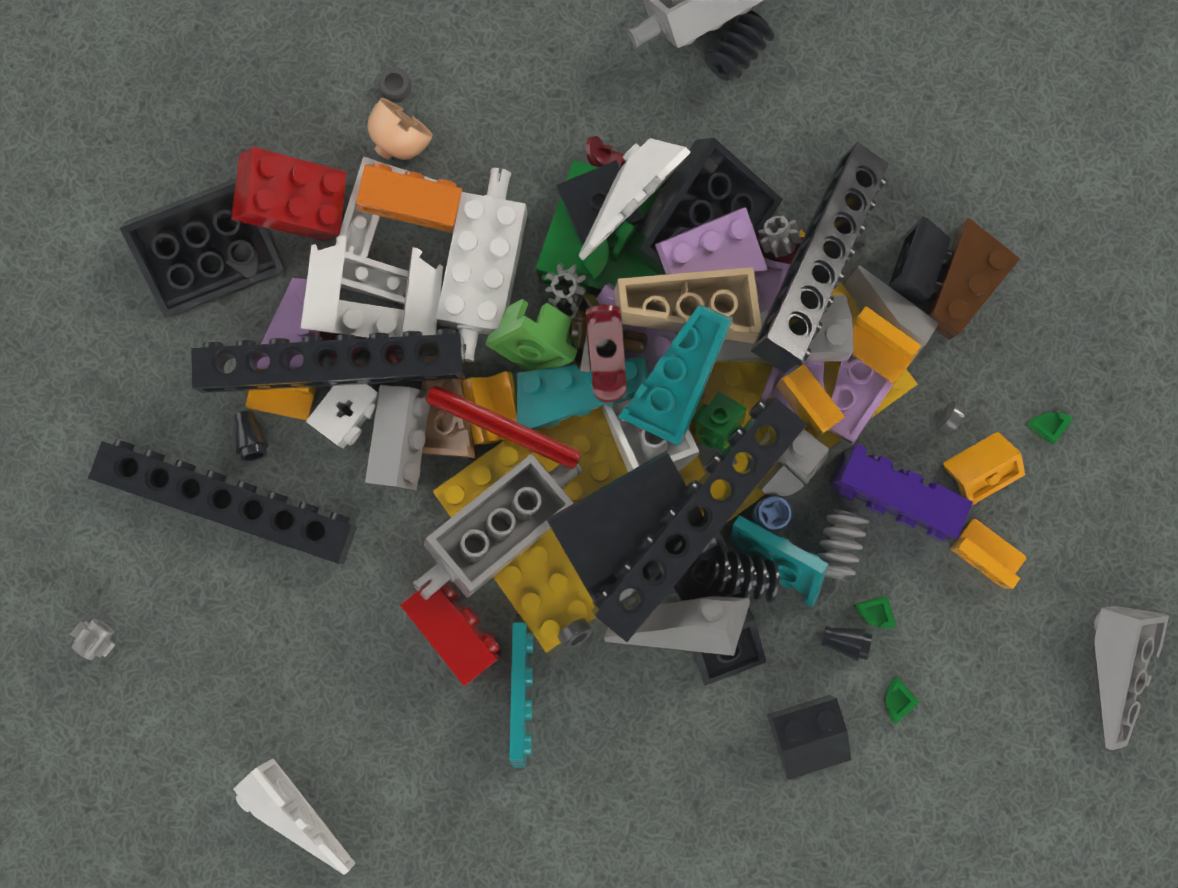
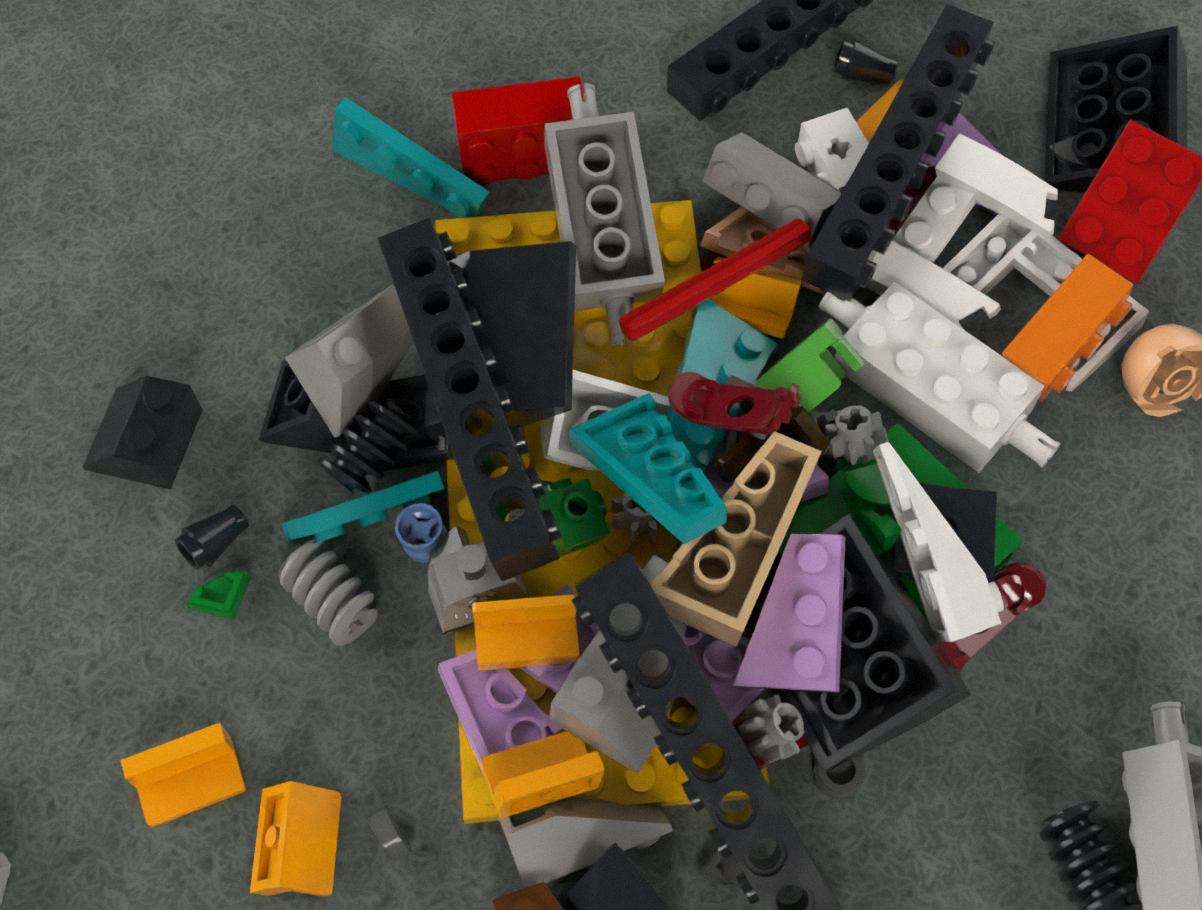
camera: 120 degrees right, 20 degrees down
(899, 700) = (103, 559): green tile -> none
(900, 494) = (339, 697): dark purple wedge -> none

